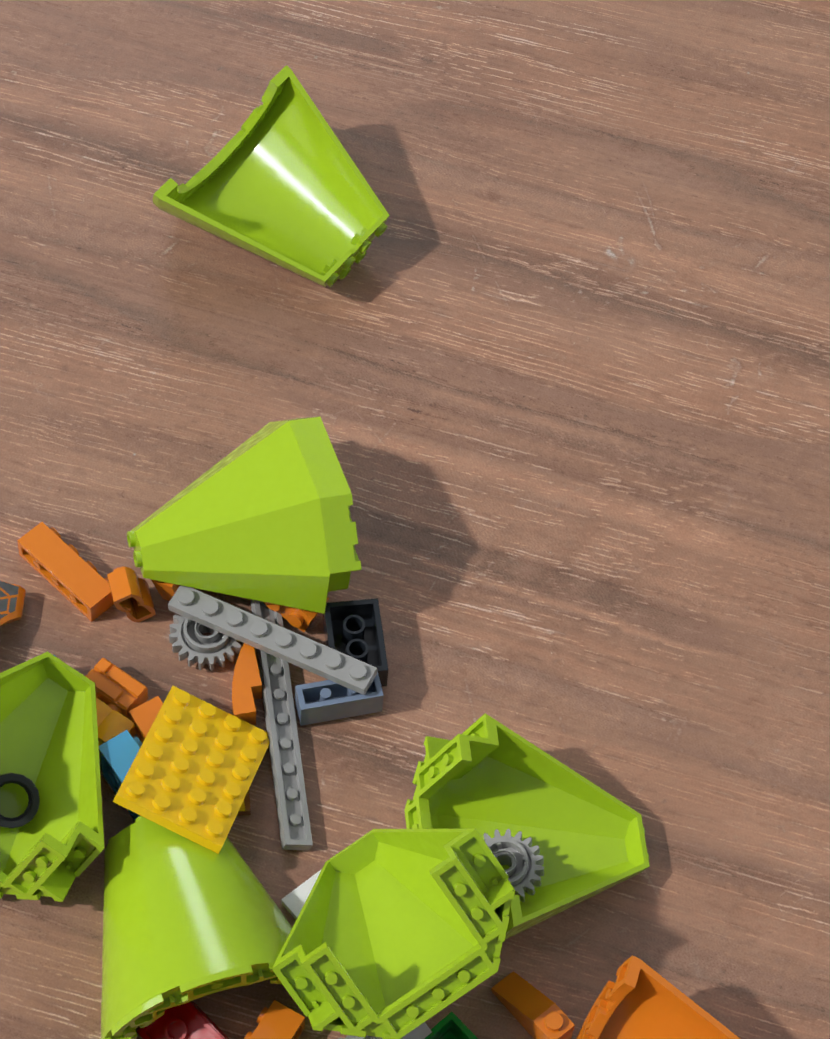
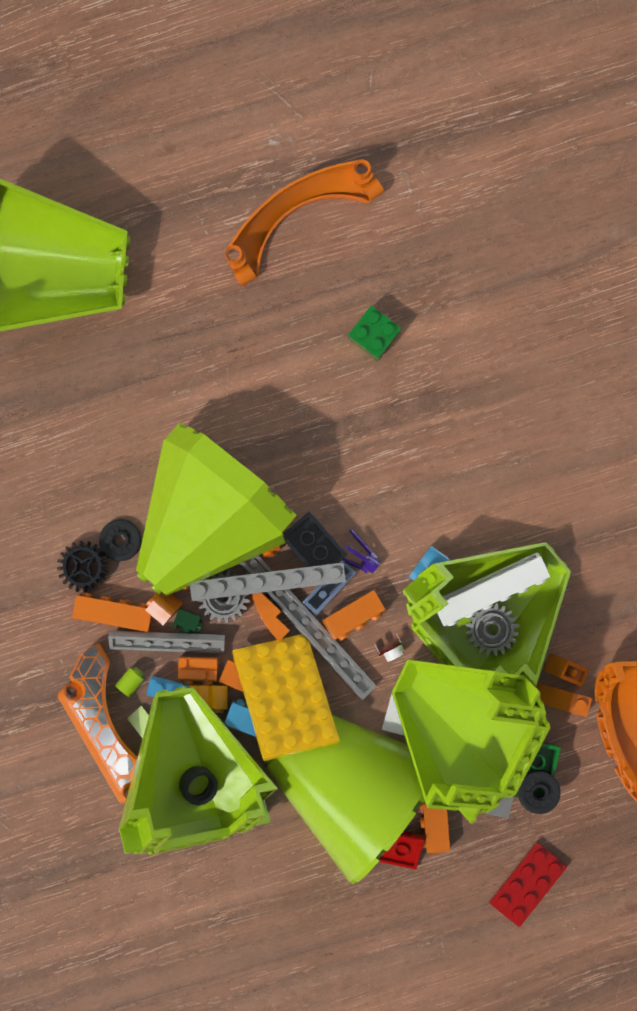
camera: 30 degrees left, 30 degrees up
(24, 650) = (130, 681): none -> lime brick
(90, 504) = (89, 573): none -> black gear
(103, 639) = (167, 642): none -> light grey plate
(132, 494) = (131, 544): none -> black wheel
(144, 632) = (188, 621): none -> dark green brick
(345, 746) = (354, 616): none -> orange brick
(360, 818) = (392, 652): none -> white piece
(407, 709) = (369, 563): none -> dark purple plant
(534, 811) = (493, 588): none -> white brick
(564, 980) = (565, 669): none -> orange slope
(590, 482) = (374, 333): none -> green brick
(648, 313) = (332, 182): none -> orange panel

